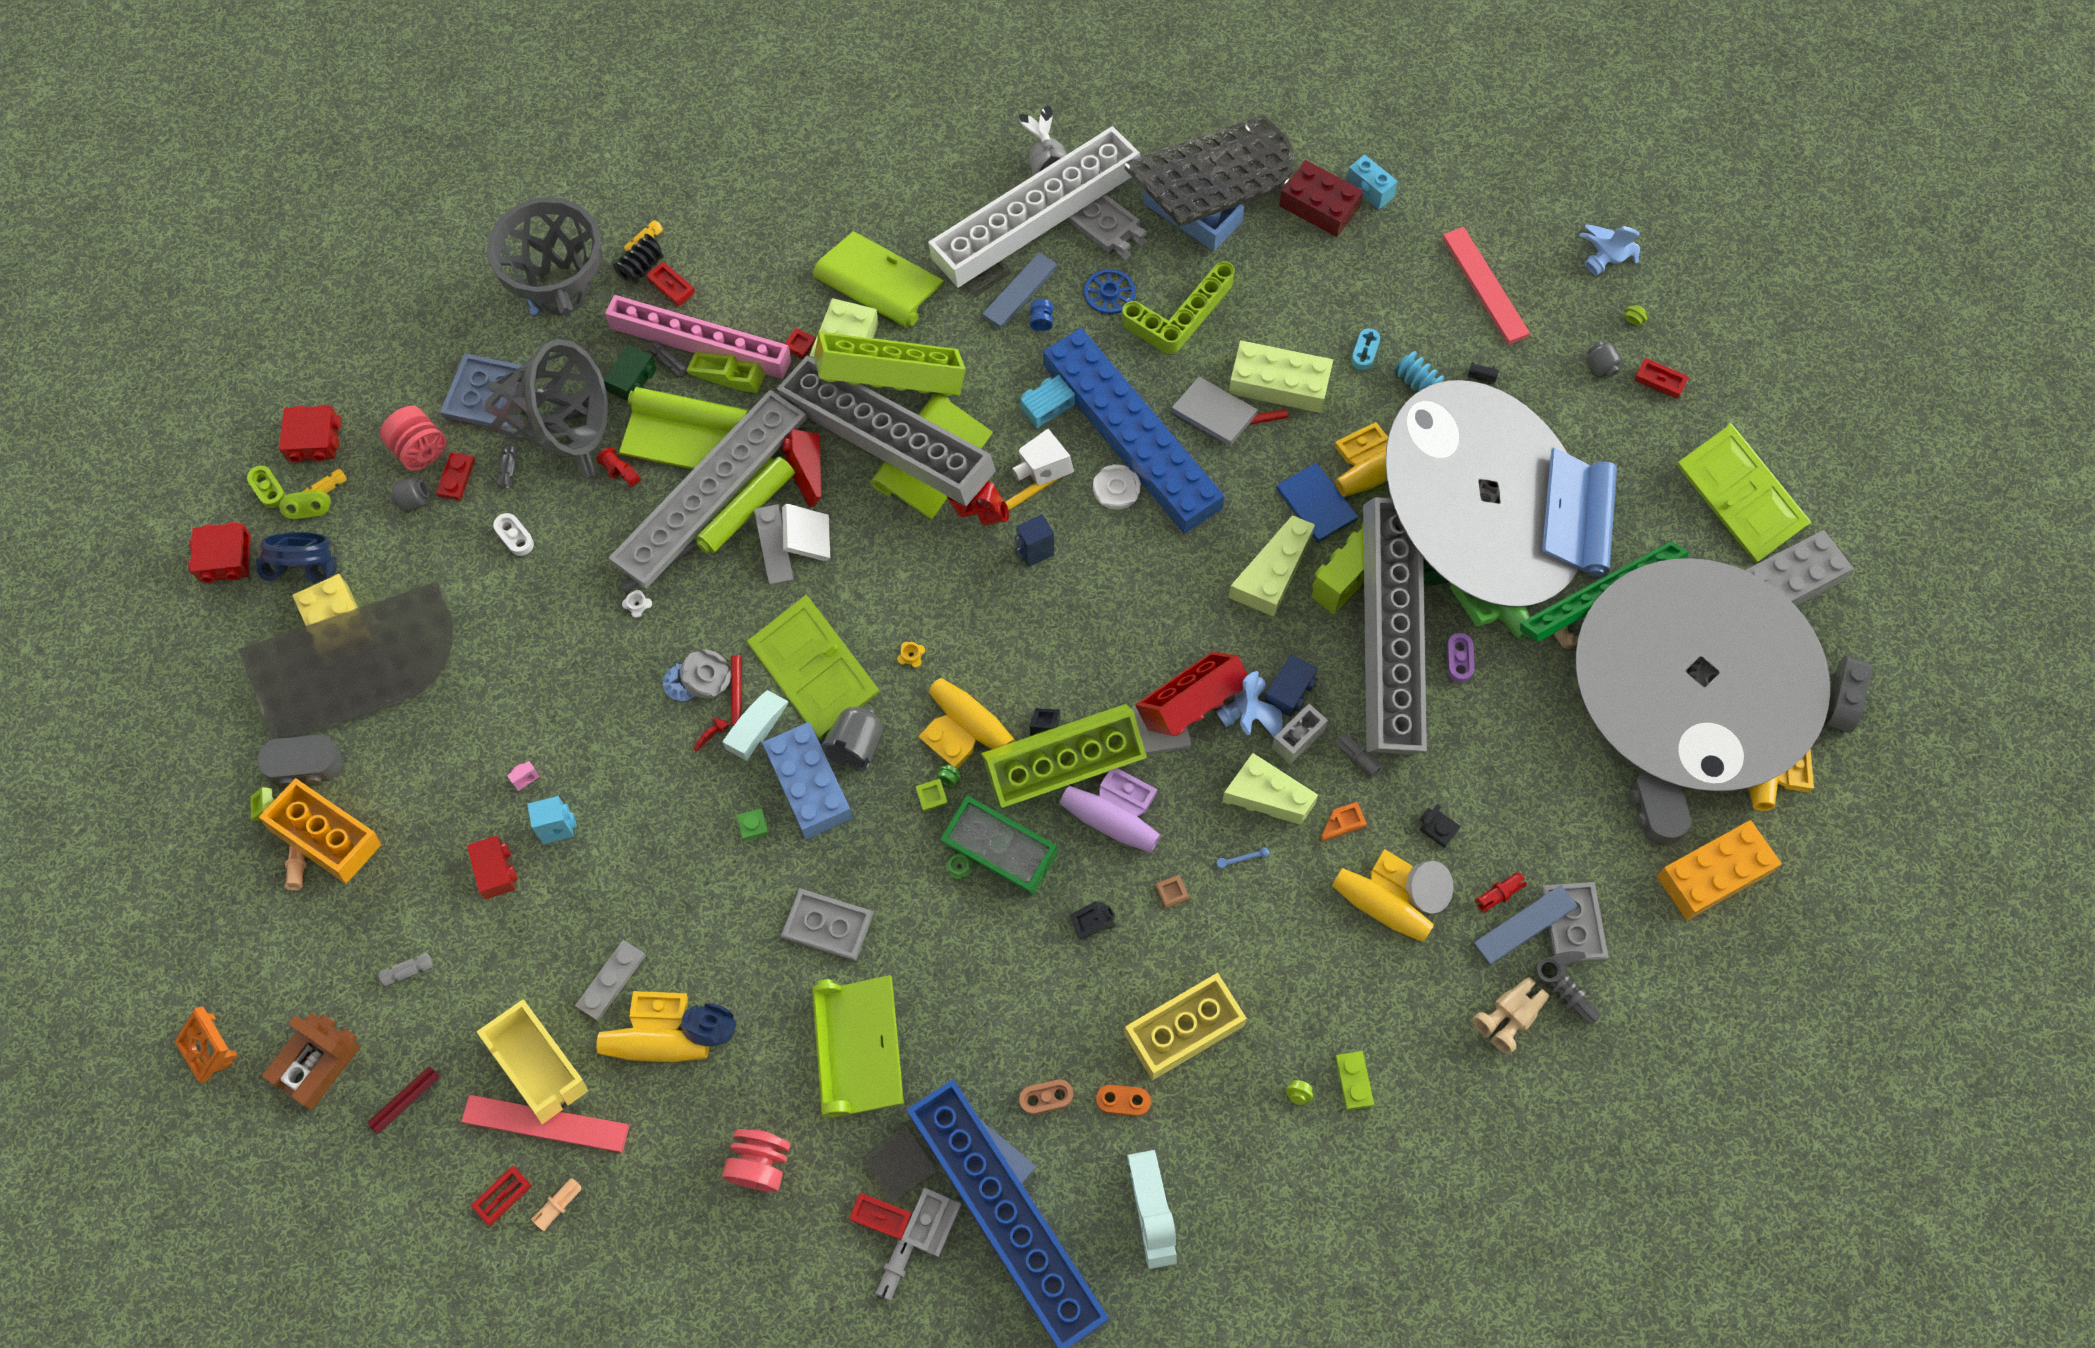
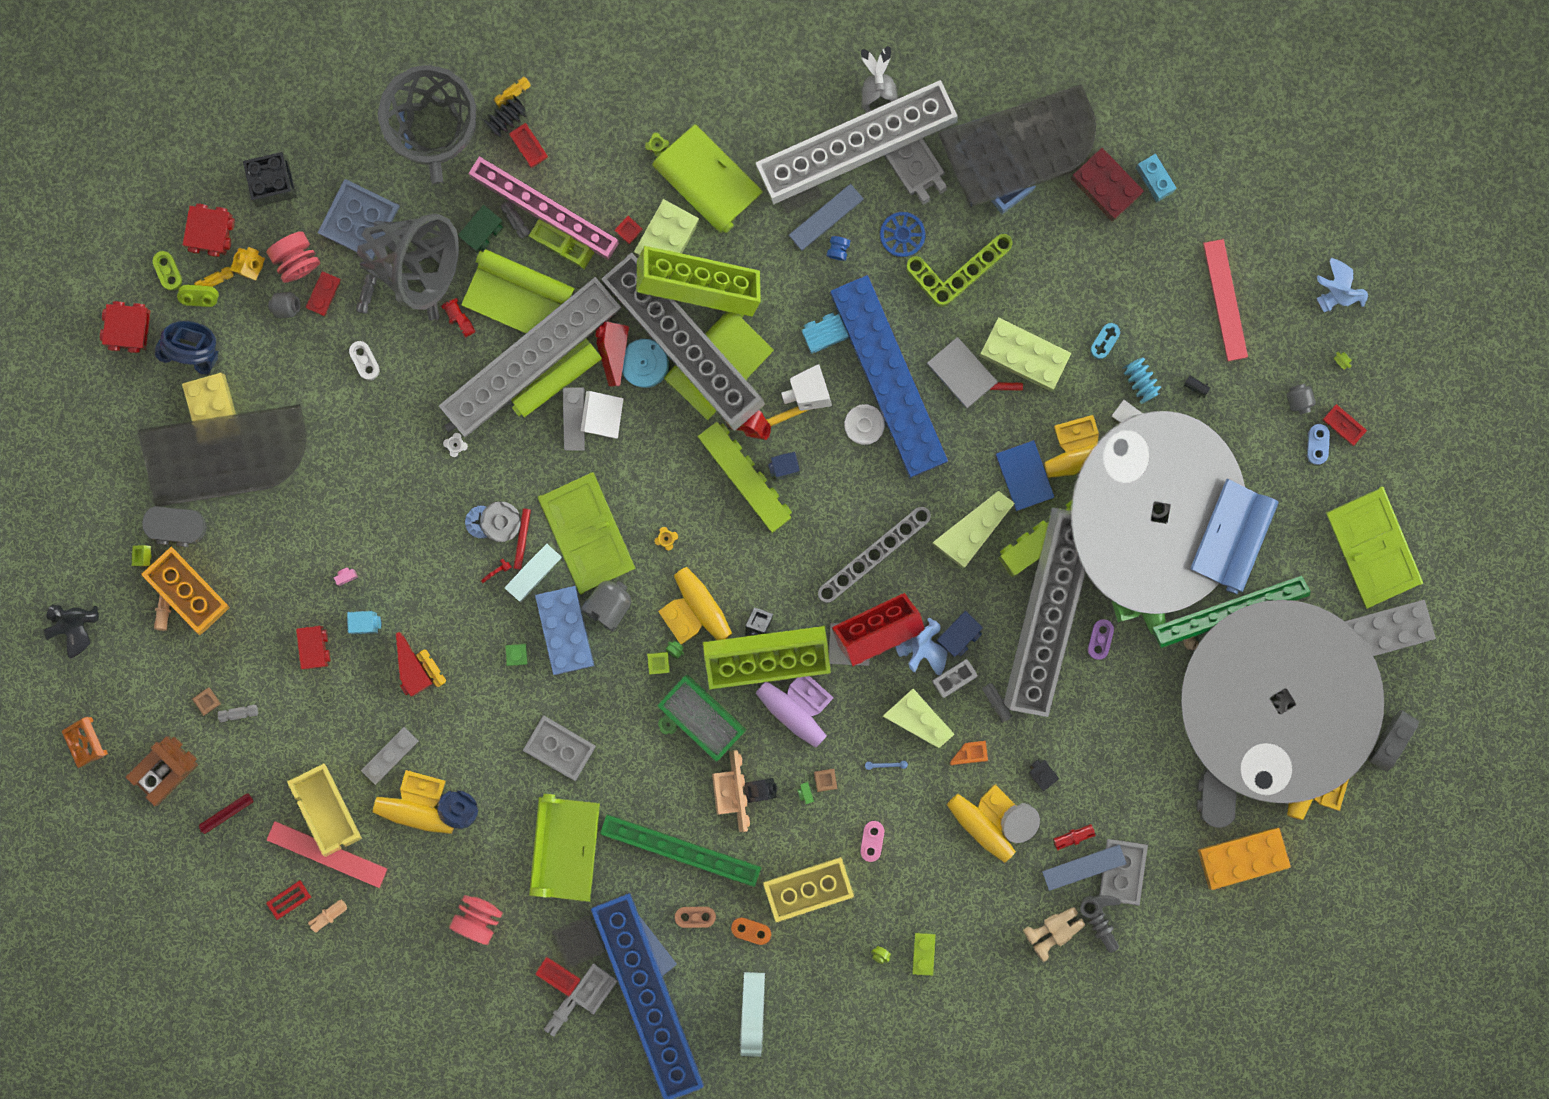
camera: 10 degrees right, 20 degrees up
(174, 897) = (71, 624): none -> black animal
(360, 458) = (247, 263): none -> yellow brick
(363, 963) = (206, 701): none -> medium nougat tile
(375, 365) = (269, 179): none -> black brick
(623, 871) = (410, 669): none -> red slope
(647, 862) = (431, 668): none -> yellow axle
(811, 252) = (657, 139): none -> lime plate
(846, 471) = (645, 363): none -> medium azure wheel
(990, 567) = (744, 477): none -> lime brick
(1008, 1016) = (680, 850): none -> green plate
(1055, 928) = (729, 791): none -> light nougat bracket
(1151, 910) = (805, 793): none -> bright green plate
(1160, 629) = (881, 548): none -> light grey beam
(1250, 952) = (872, 841): none -> bright pink plate
(1637, 403) = (1318, 444): none -> light blue plate

